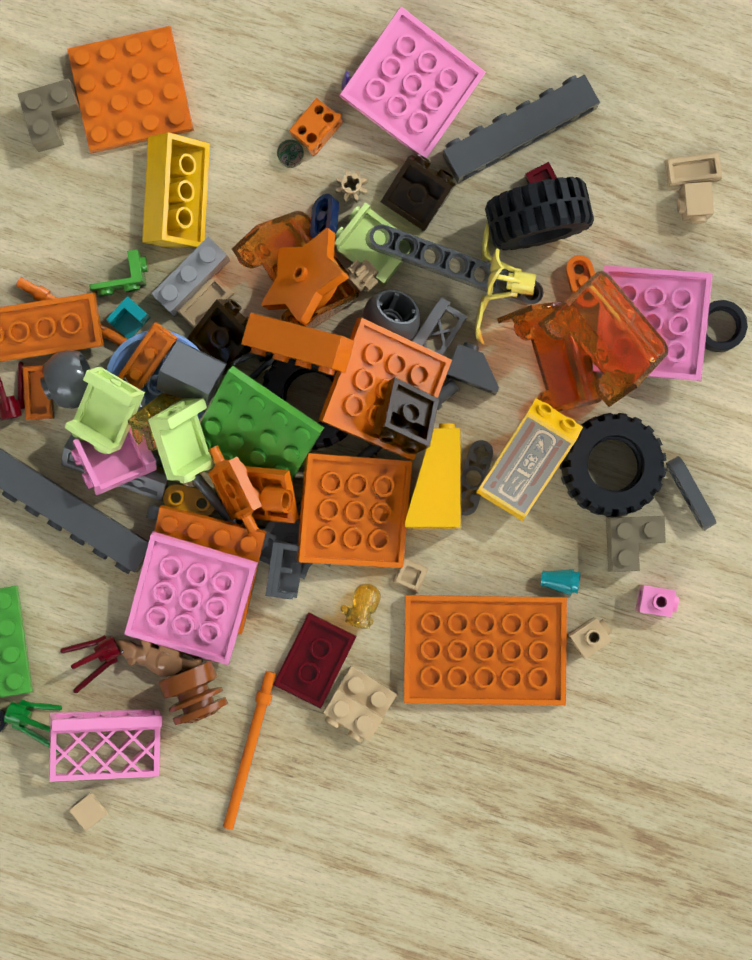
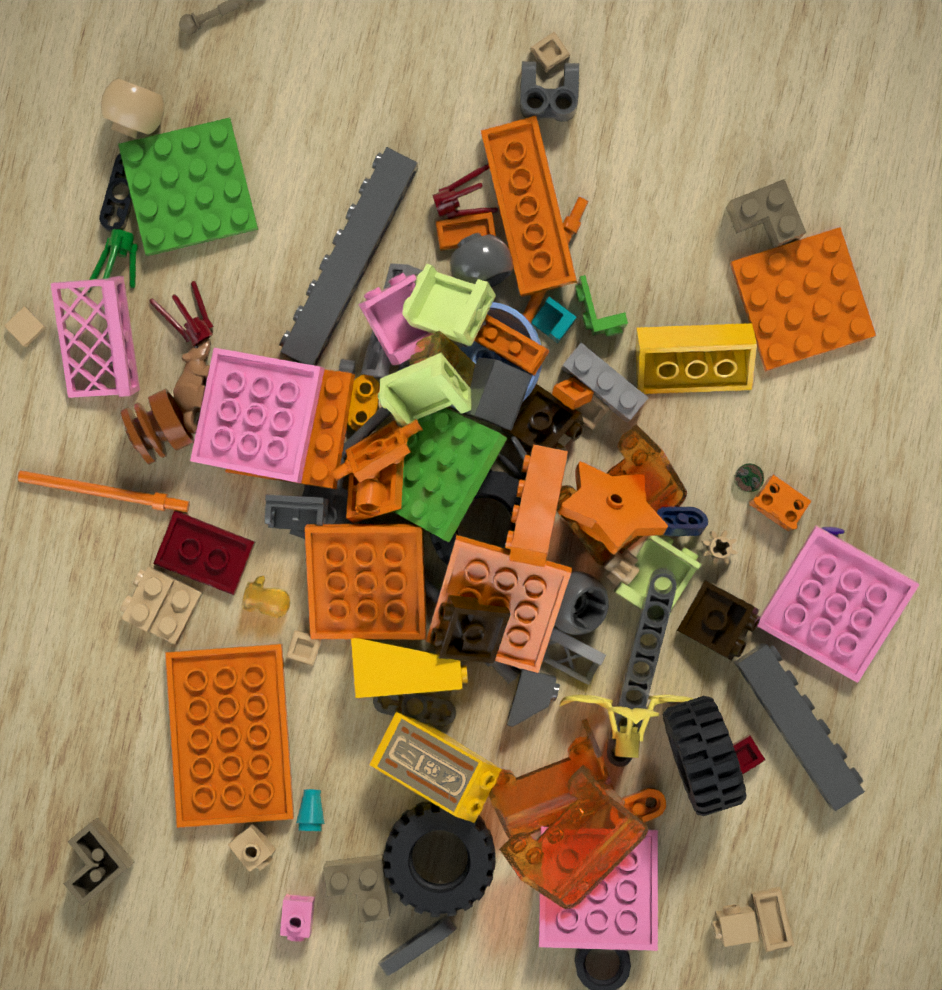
camera: 85 degrees right, 0 degrees up
(197, 305) = (572, 393): none -> orange plate
(589, 775) = (103, 859): none -> dark tan brick

